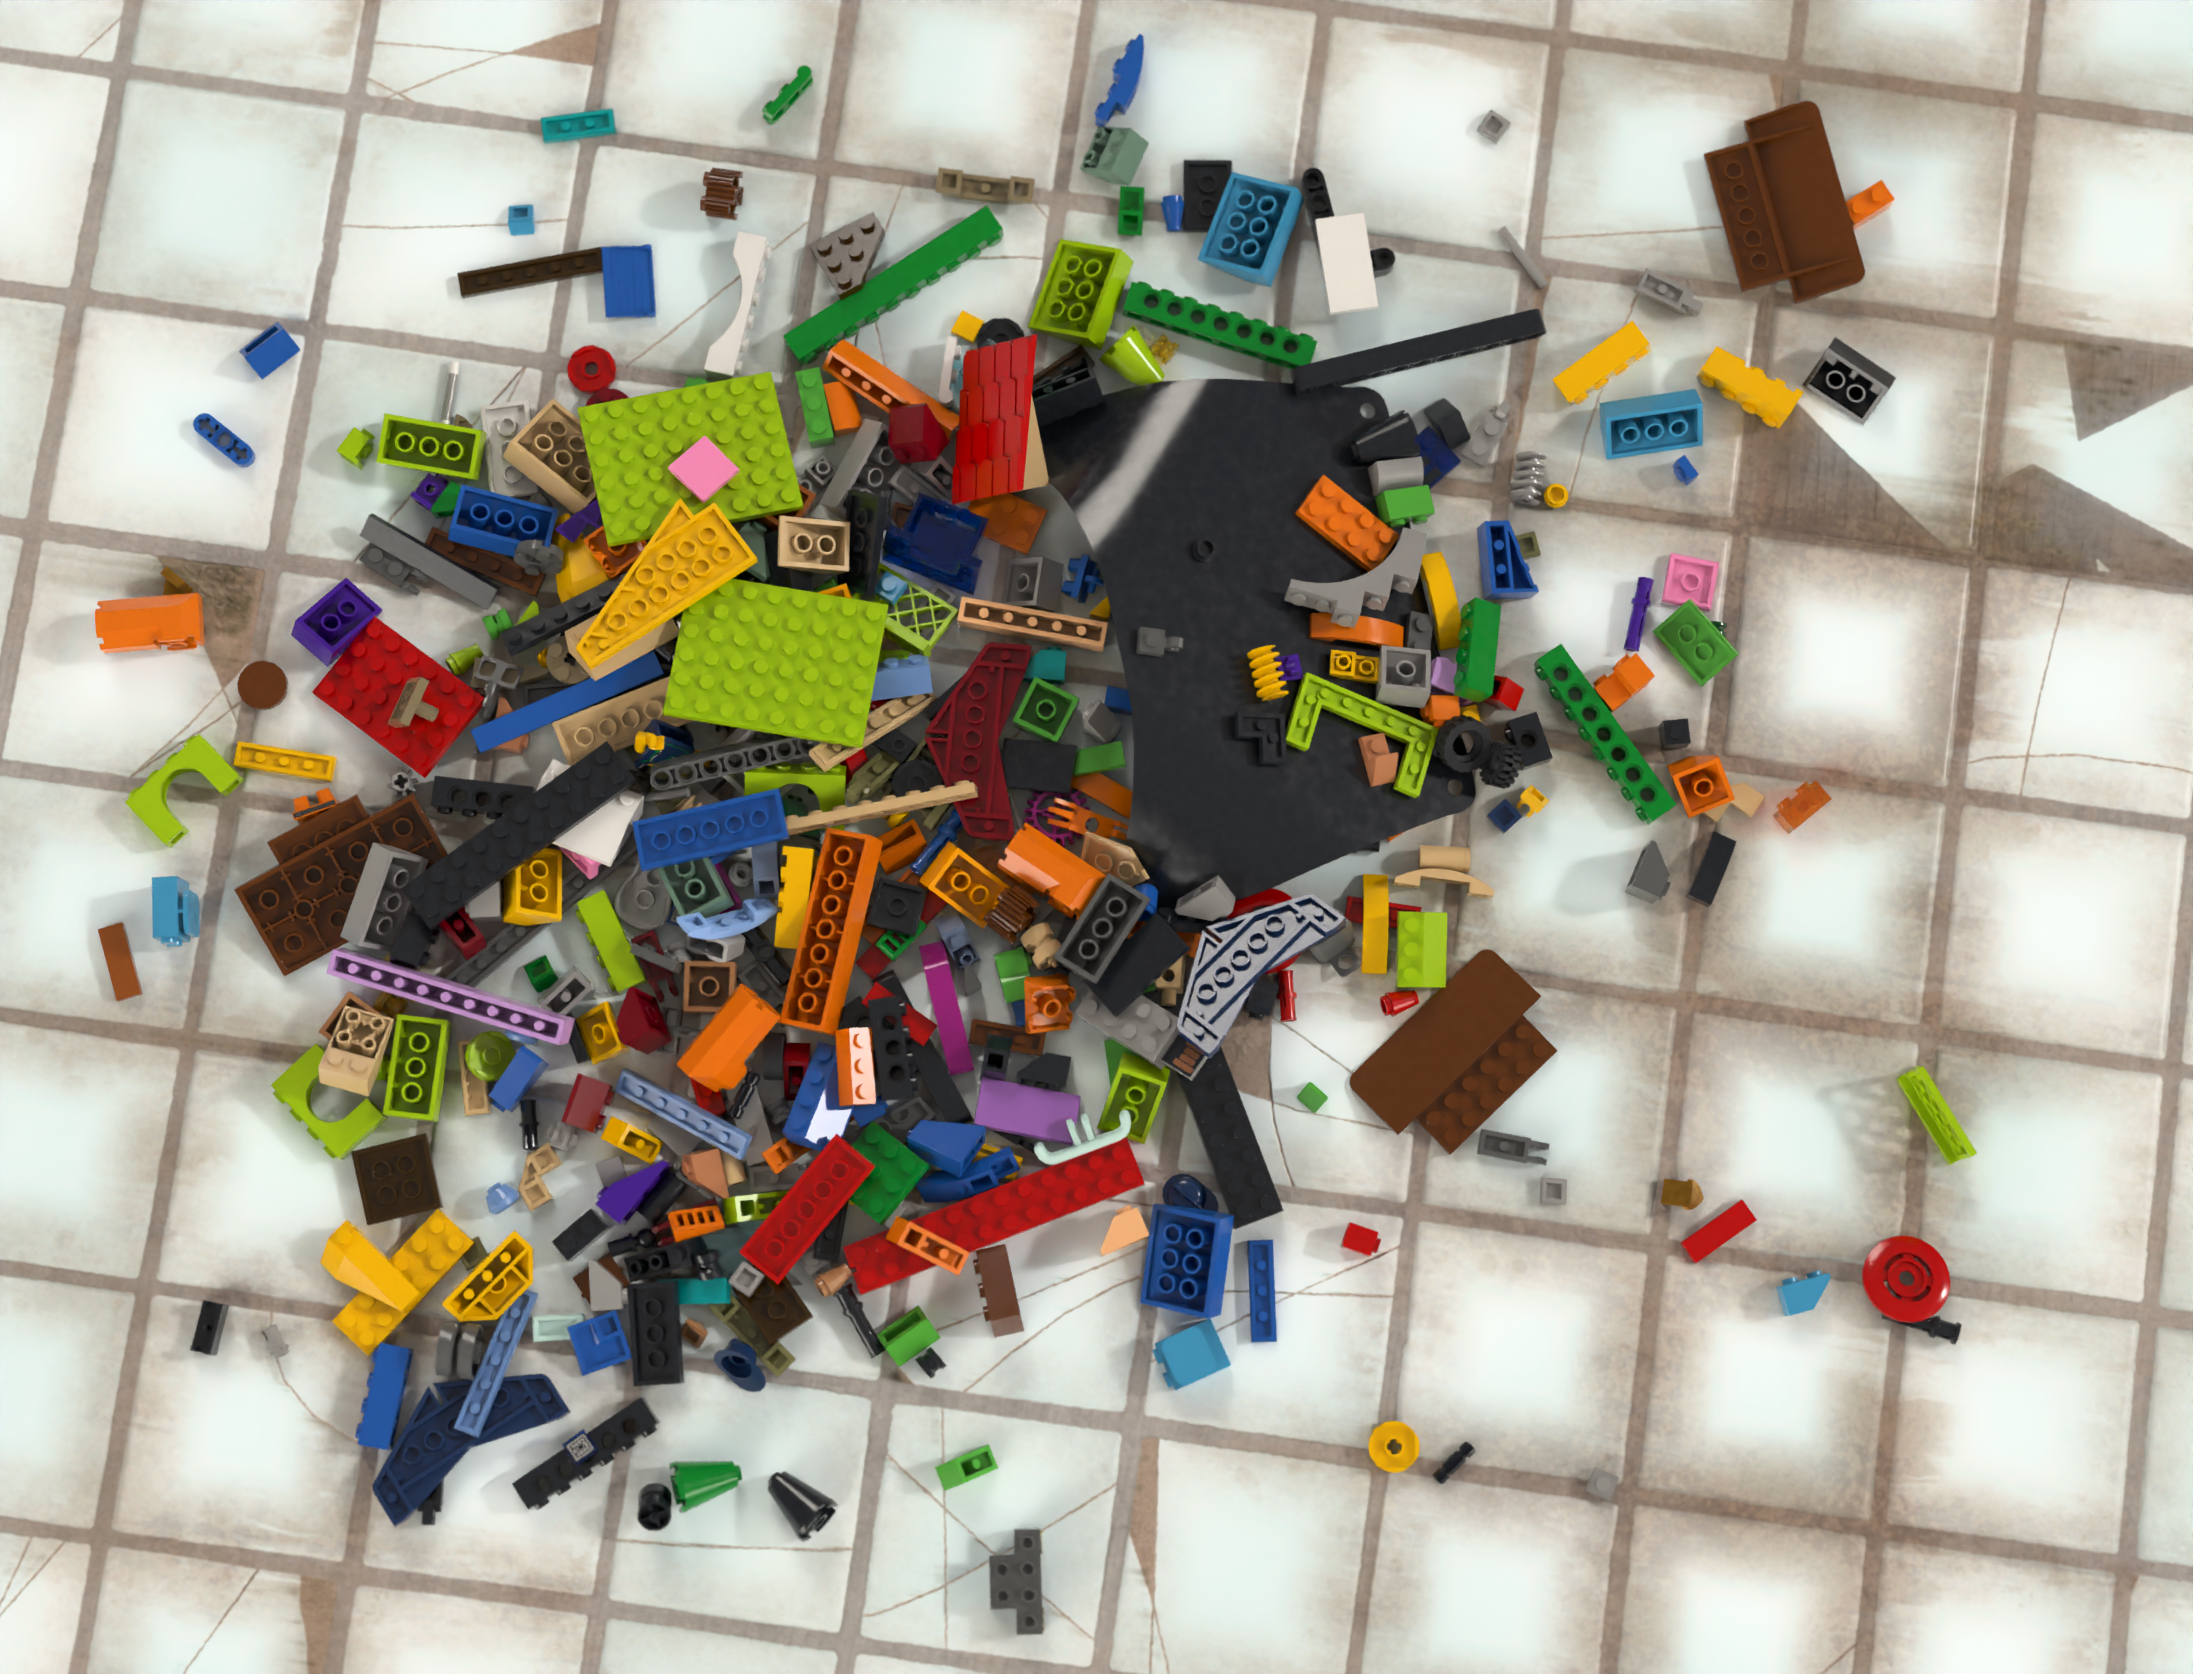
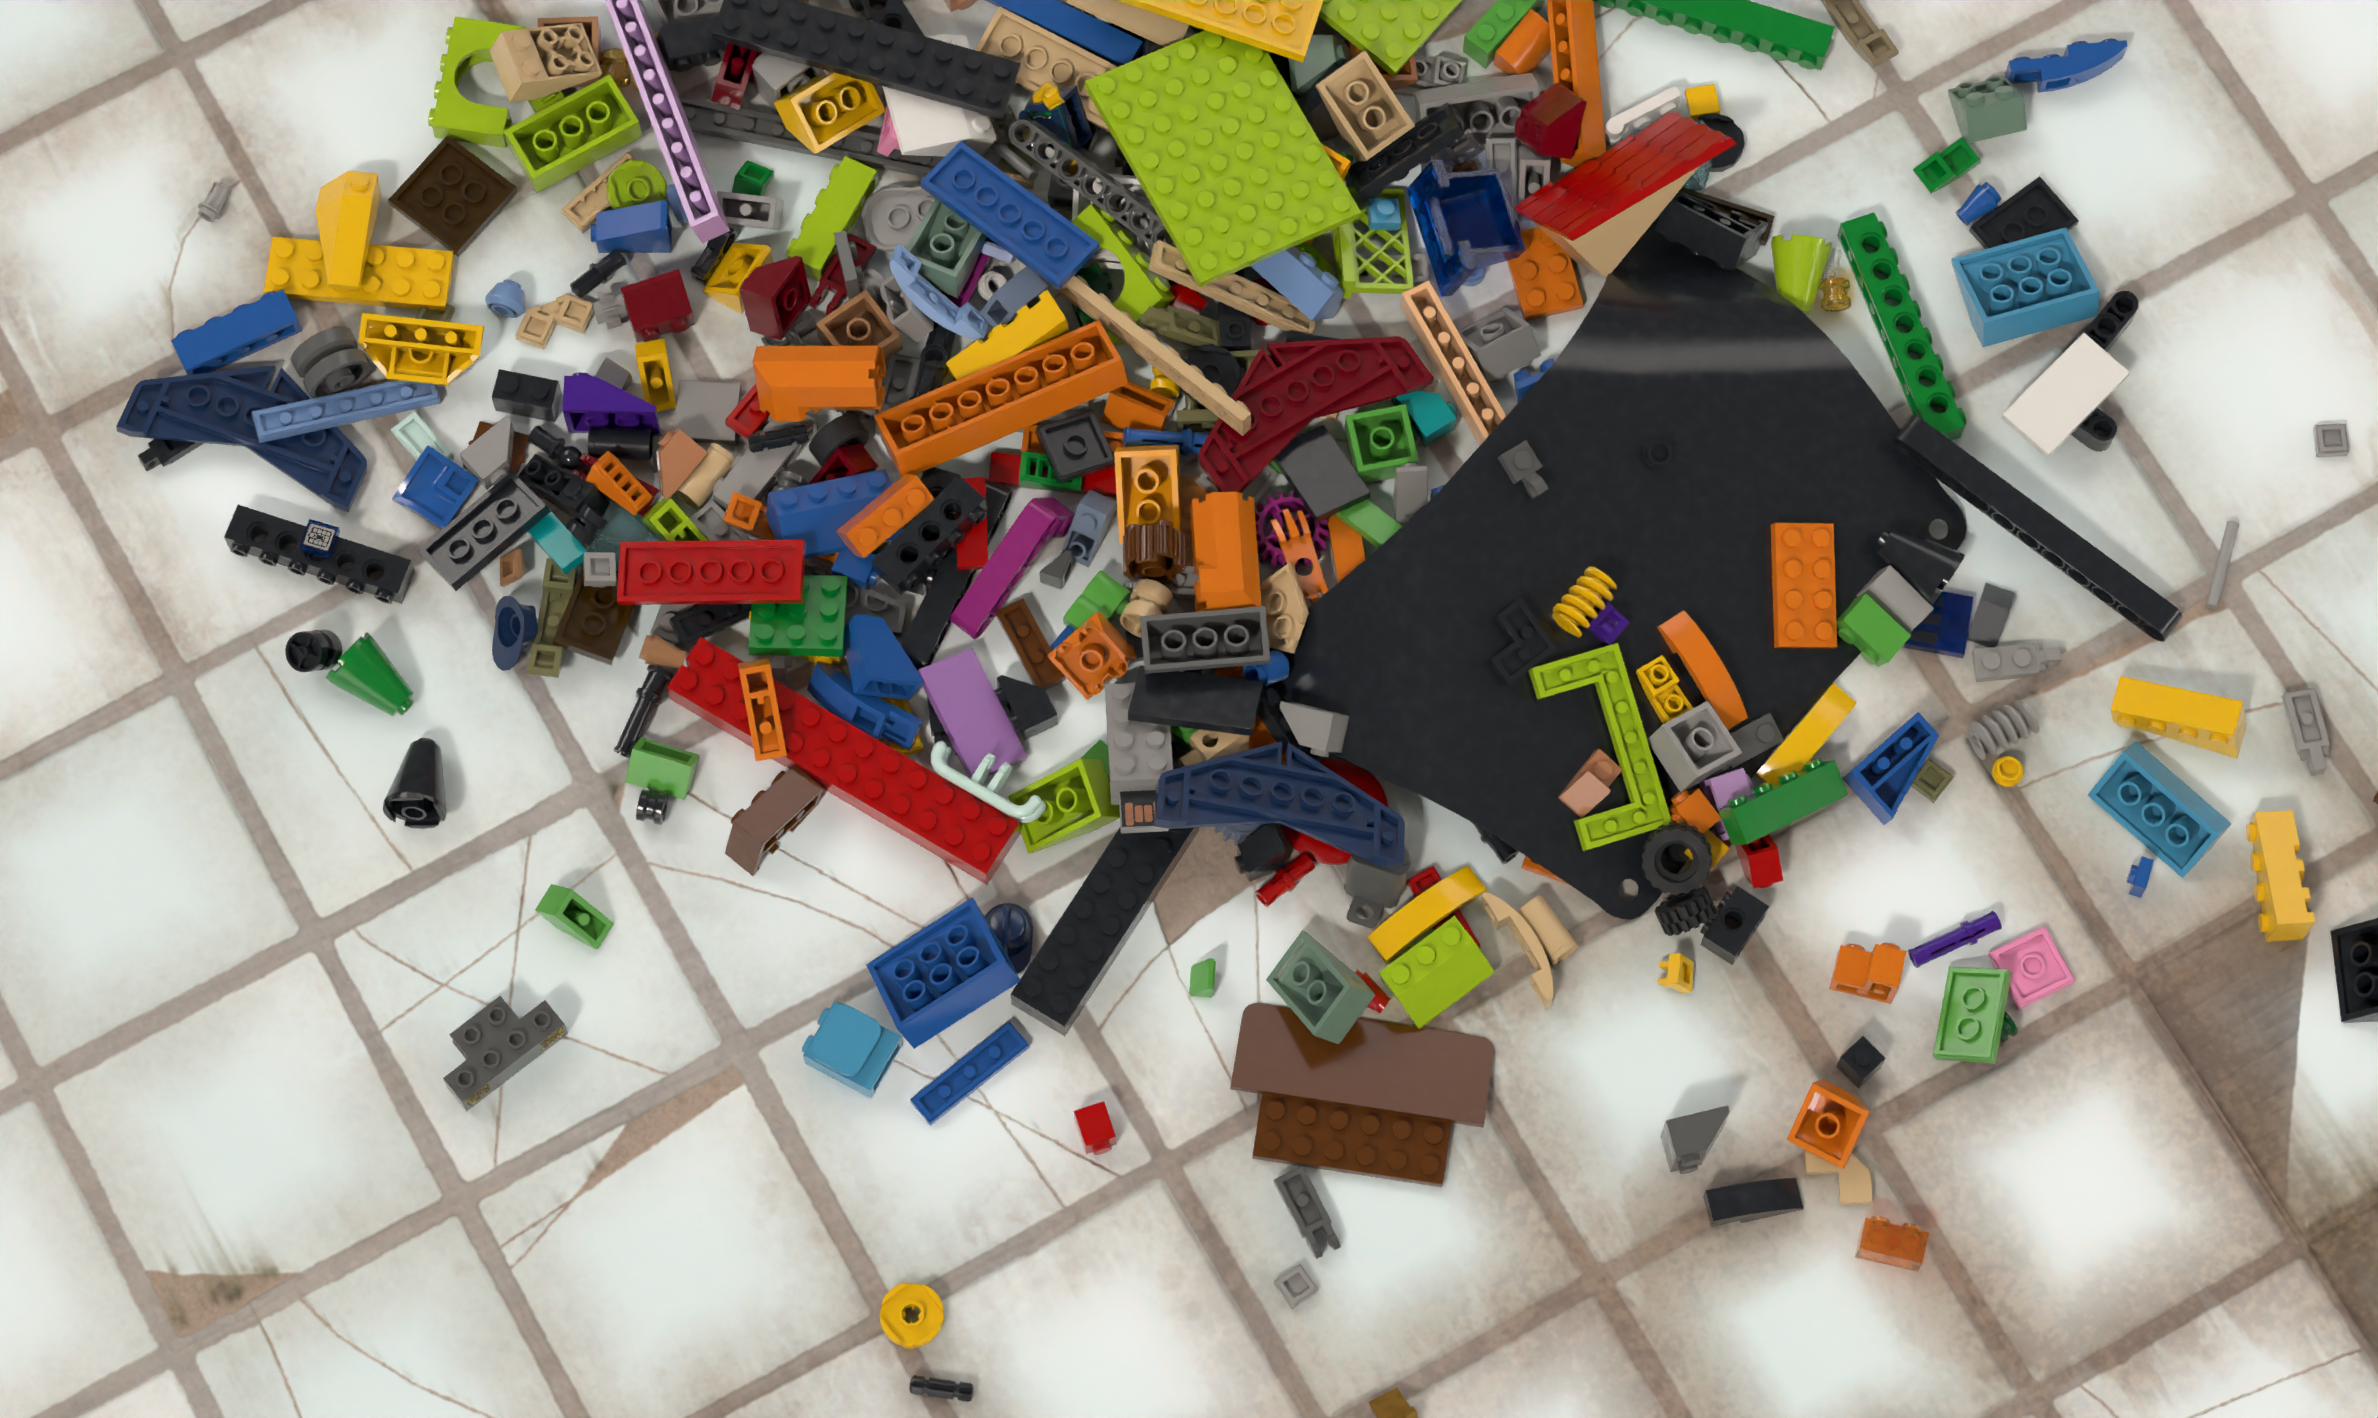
camera: 55 degrees right, 10 degrees down
(209, 1327) = (184, 136): black hinge -> none
(683, 1113) = (717, 399): medium blue tile -> none
(996, 1057) = (1000, 644): black slope -> none
(1081, 293) = (1825, 179): lime slope -> none
(1124, 1230) = (922, 889): light nougat slope -> none
(1372, 589) = (1756, 650): light grey arch -> none
(1378, 1030) = (1320, 988): none -> sand green slope
(1504, 816) = (1638, 958): dark blue plate -> none
(1603, 720) = (1777, 1100): green brick -> none

